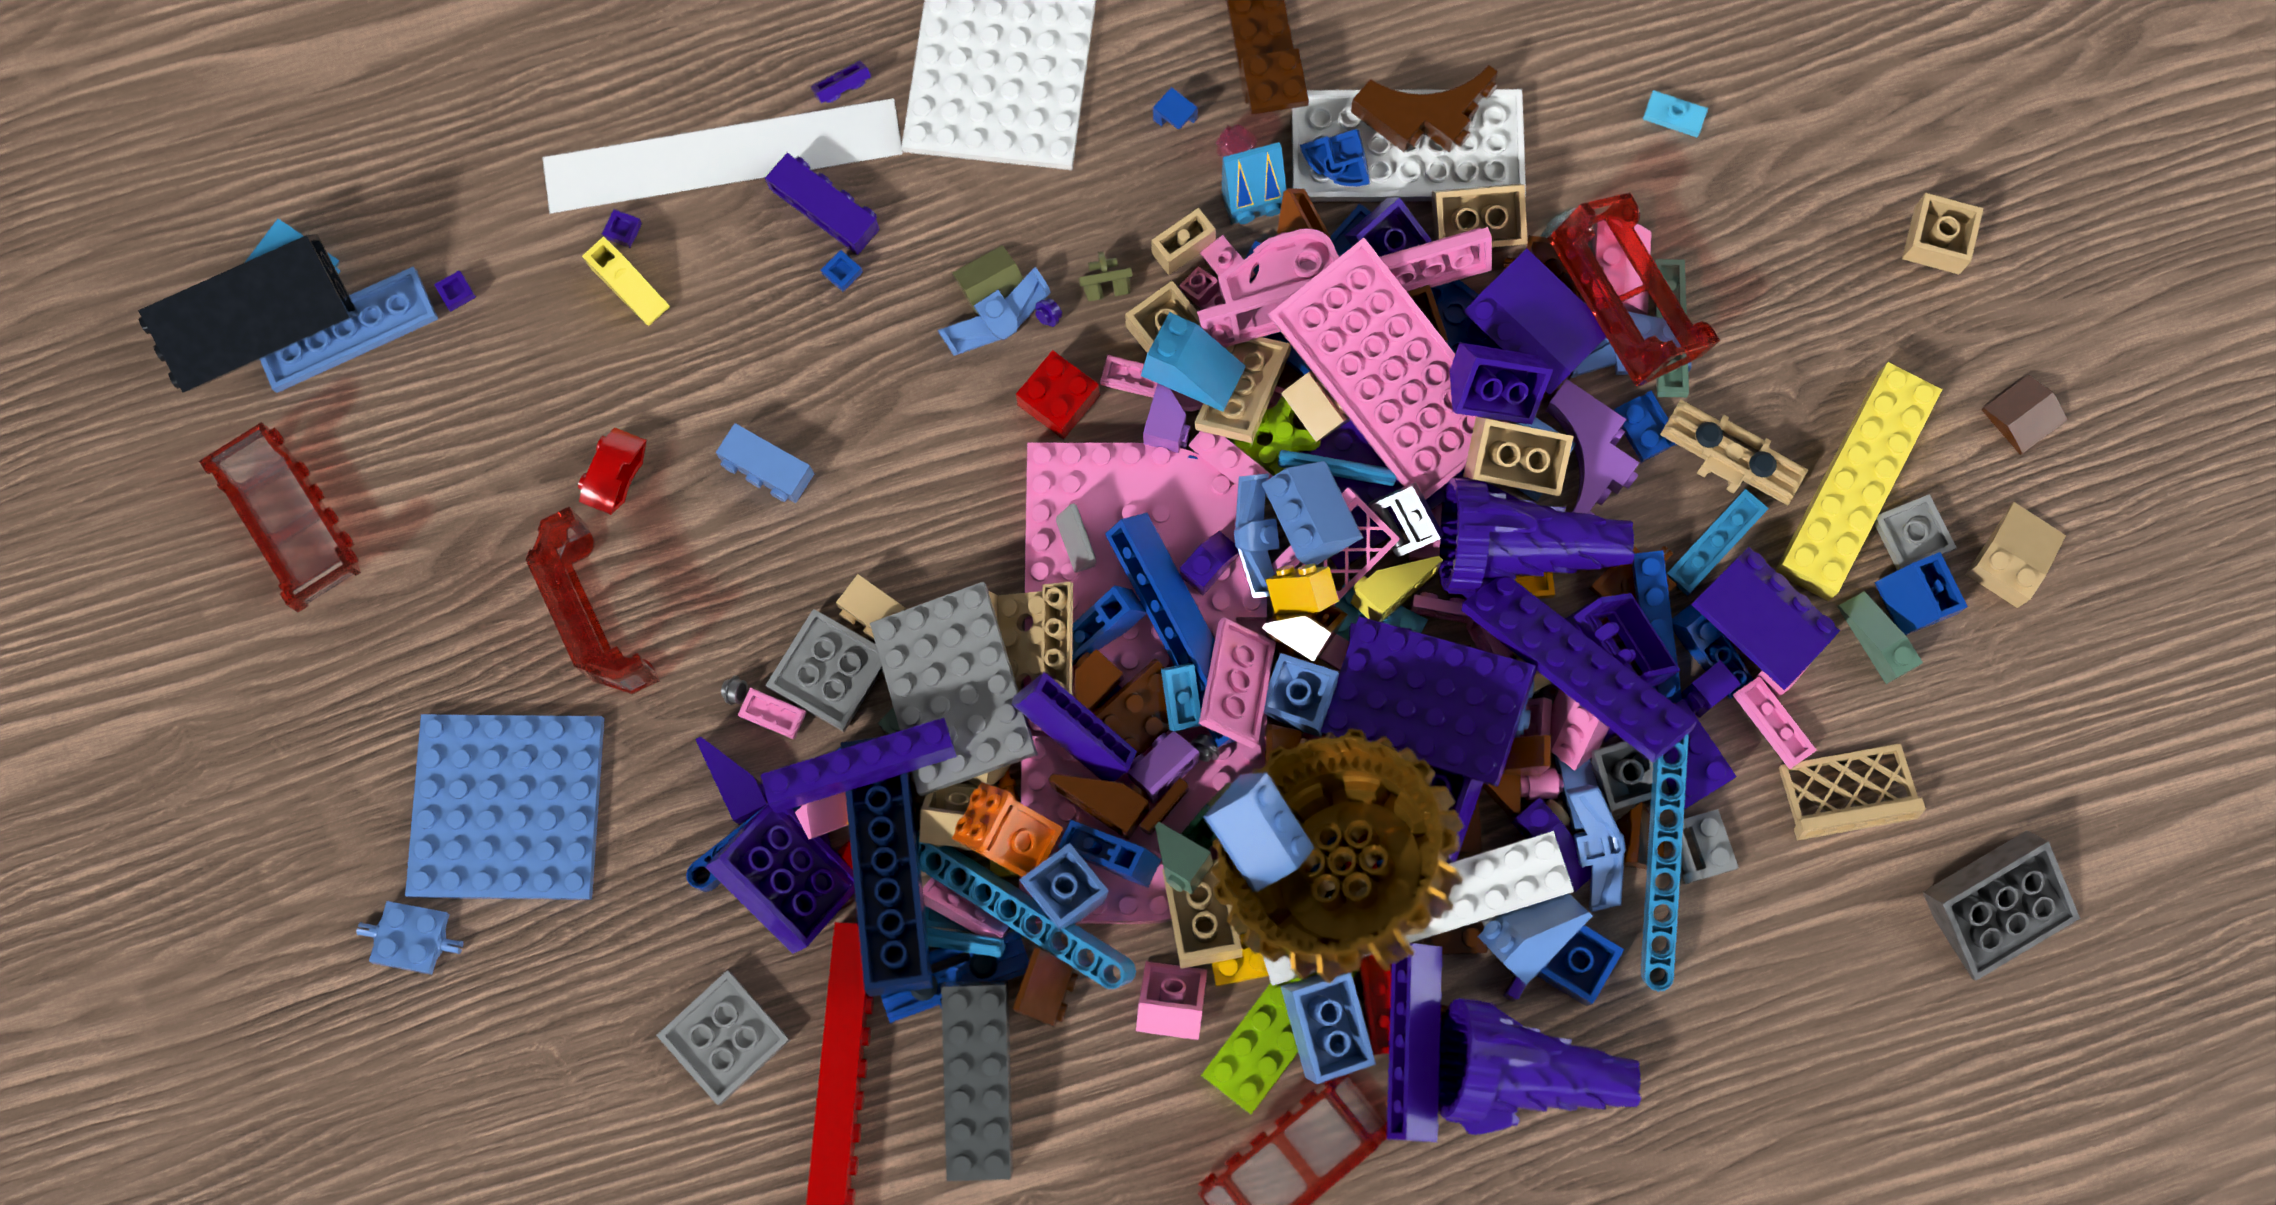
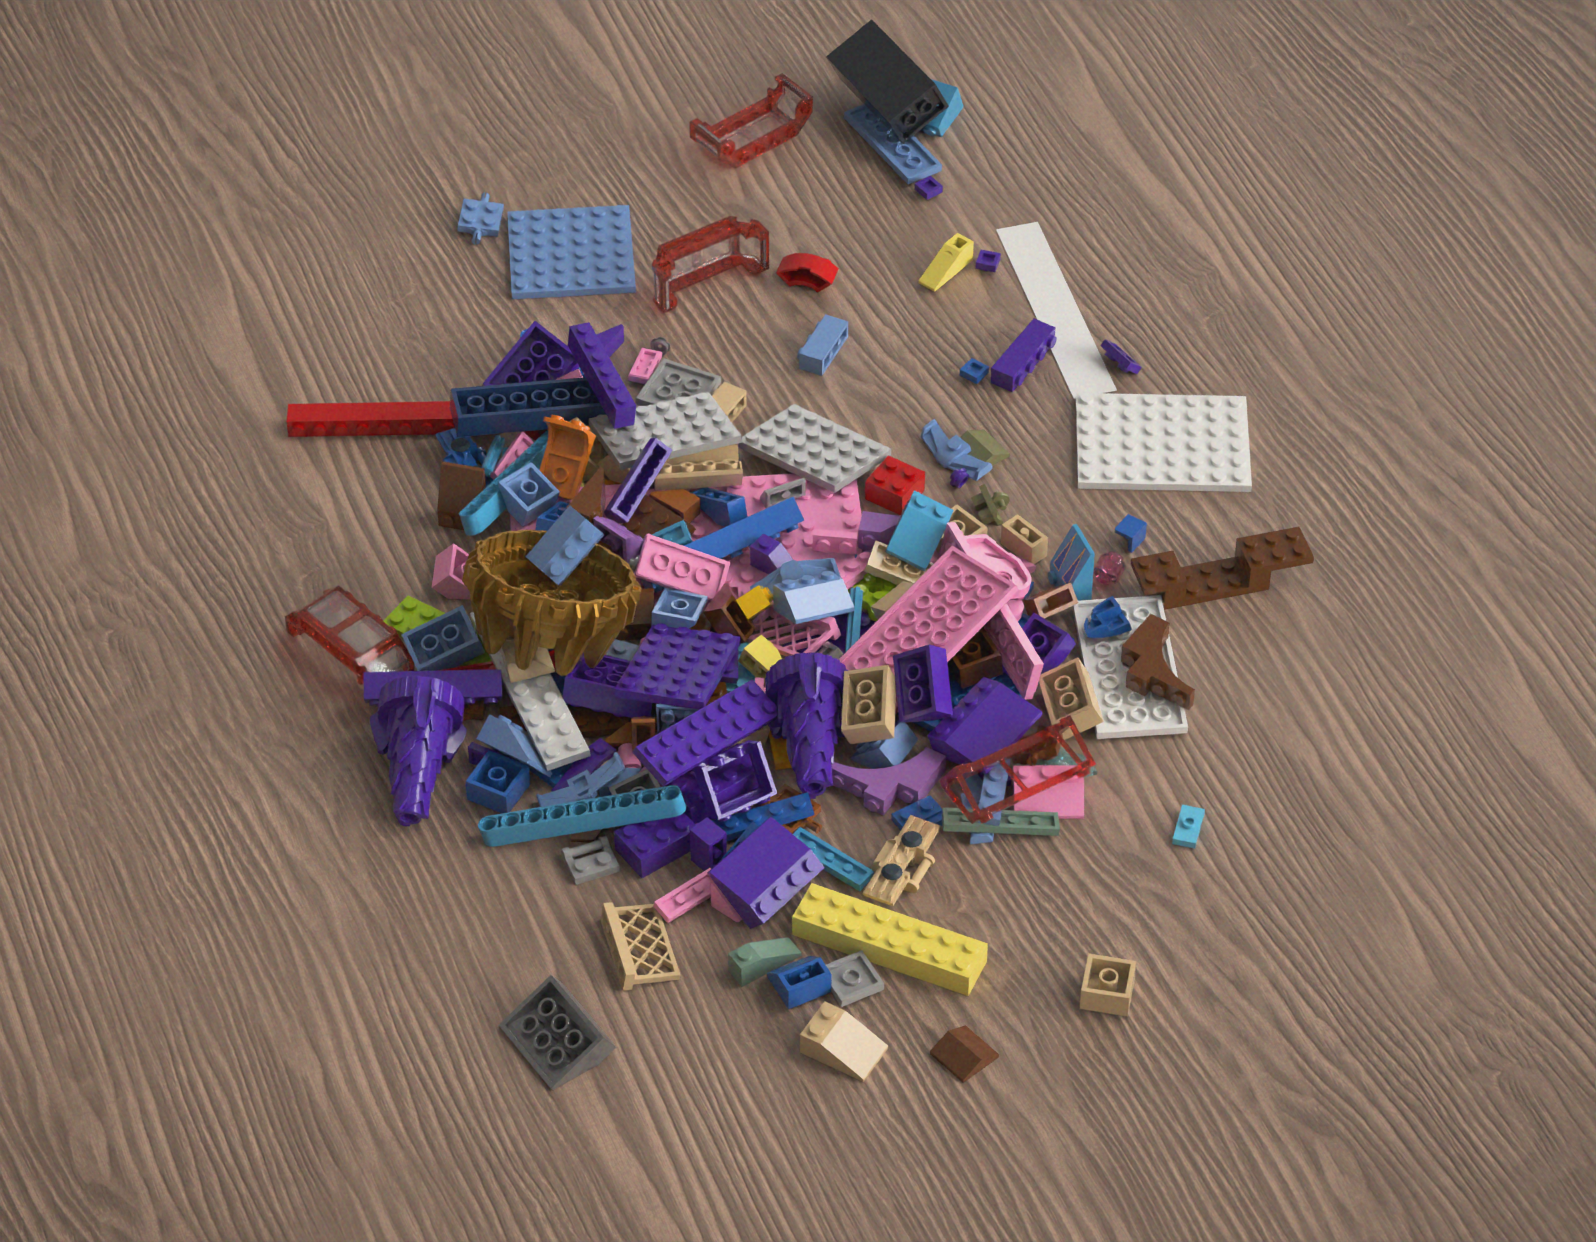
camera: 80 degrees right, 30 degrees down
(723, 1038) = (422, 363): light grey plate -> none
(977, 1080) = (392, 474): dark grey brick -> none
(980, 492) = (814, 448): none -> light grey plate
(1182, 490) = (835, 541): none -> bright pink plate

